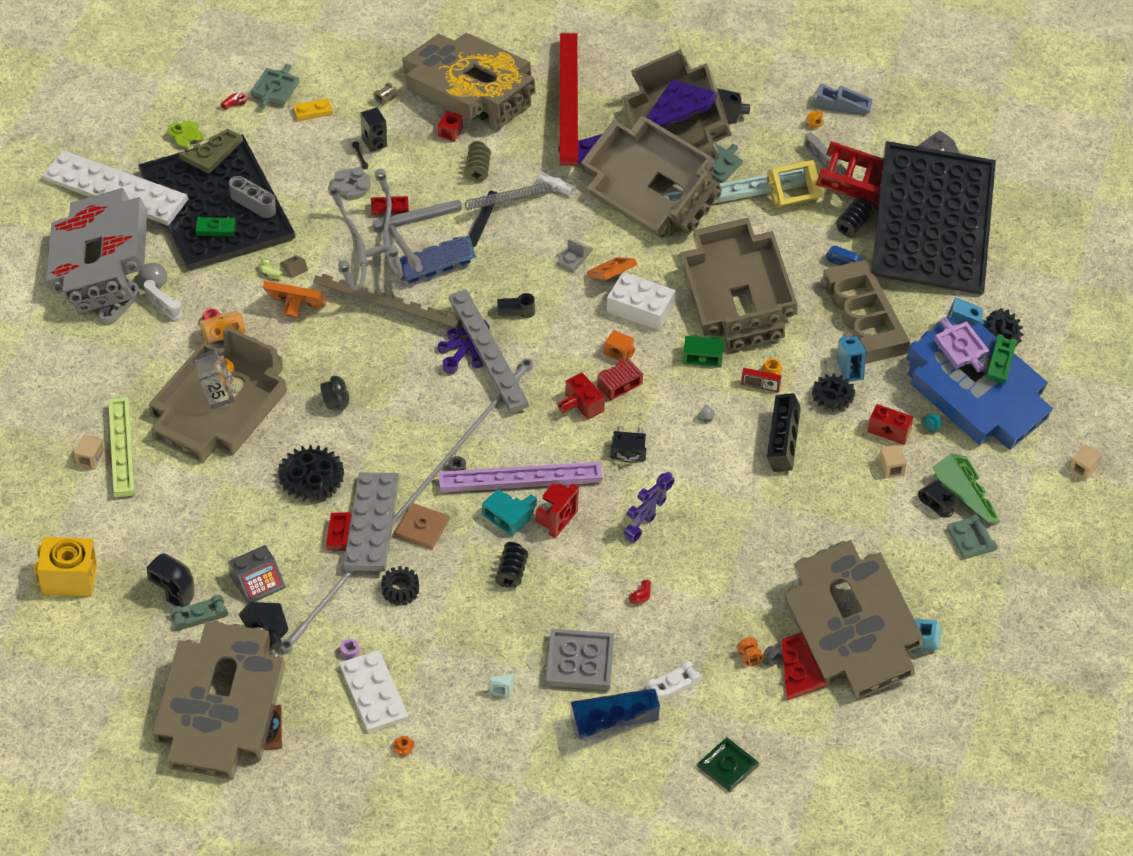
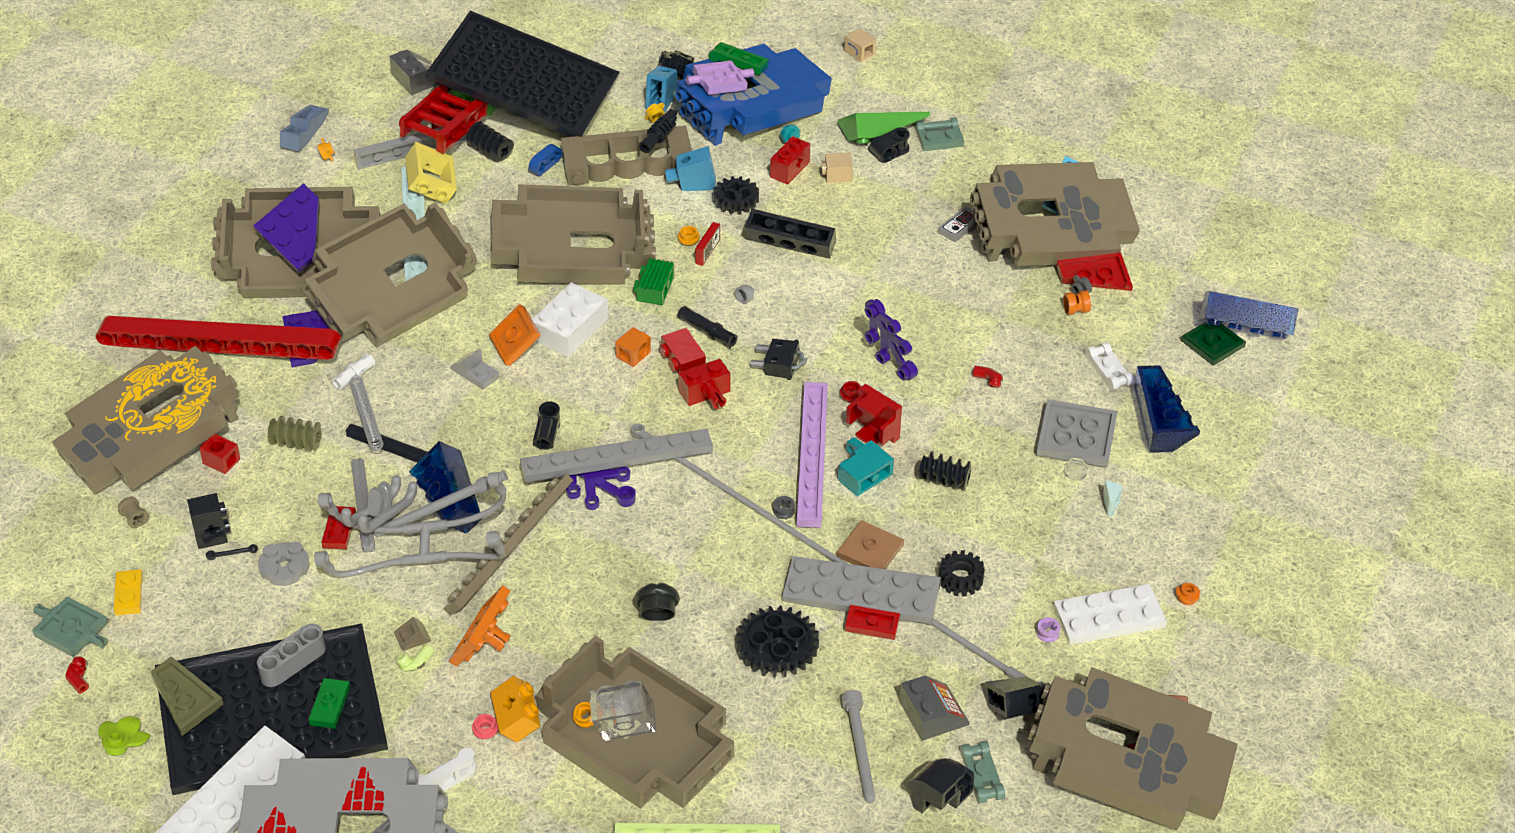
camera: 80 degrees left, 5 degrees down
(255, 526) = (852, 703): none -> light grey piece
(404, 220) = (380, 506): none -> light grey piece
(599, 493) = (850, 391): none -> red plate
(653, 398) = (714, 330): none -> black pin
(758, 784) = (1249, 313): none -> clear blue wedge
(888, 320) = (659, 130): none -> black hinge
(931, 321) = (654, 112): none -> yellow plate

